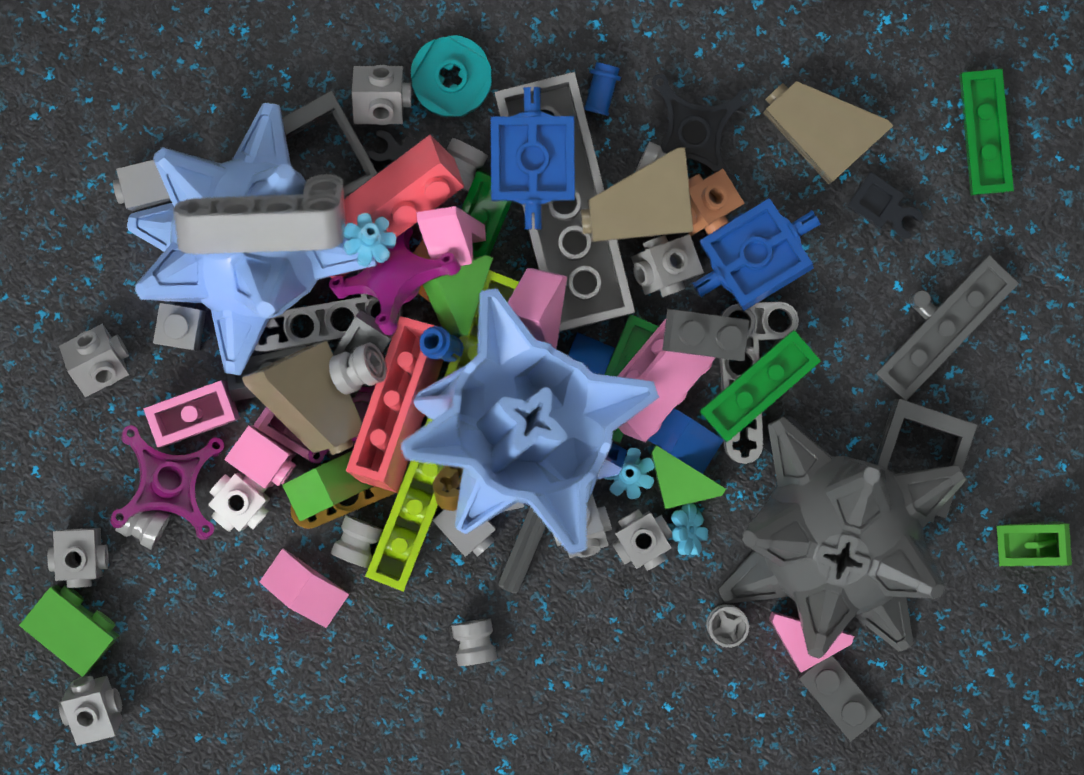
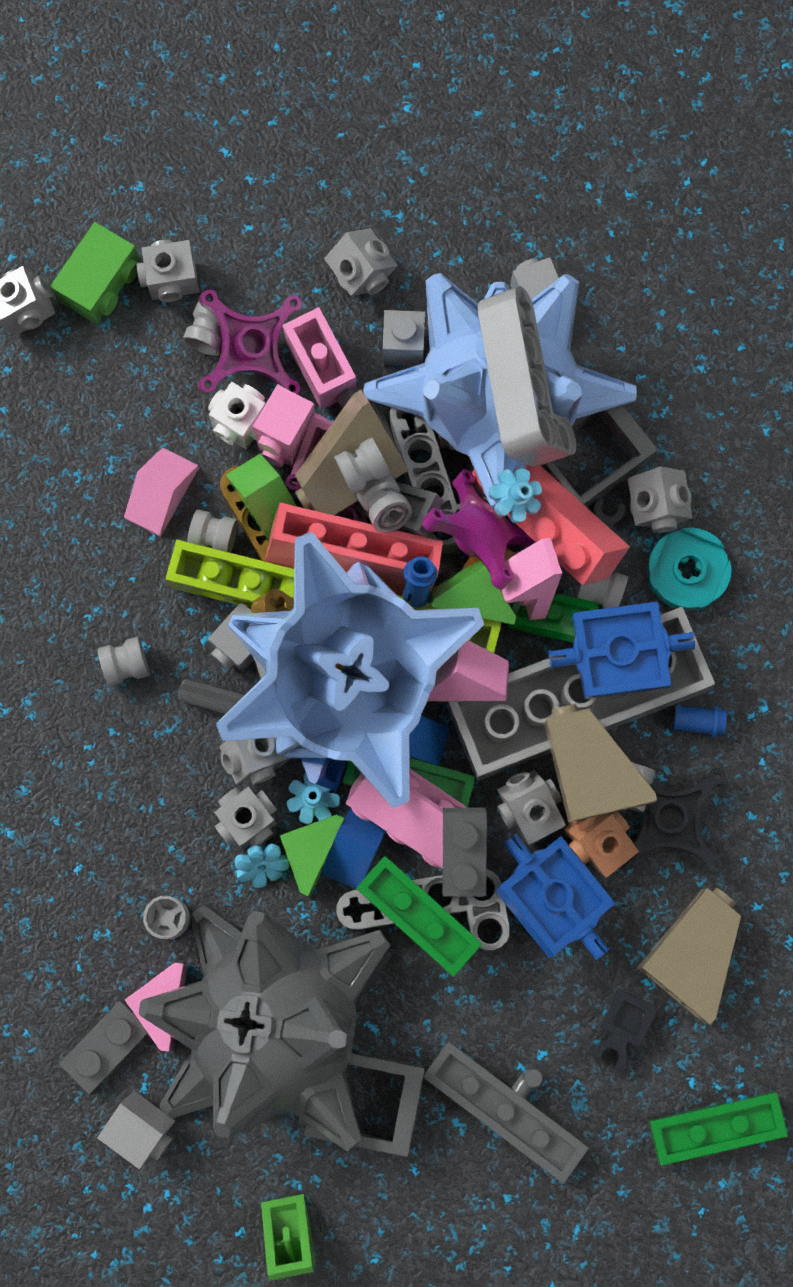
camera: 85 degrees right, 10 degrees down
(323, 385) = (362, 466): none -> light grey wheel
(921, 672) = (137, 1130): none -> light grey brick

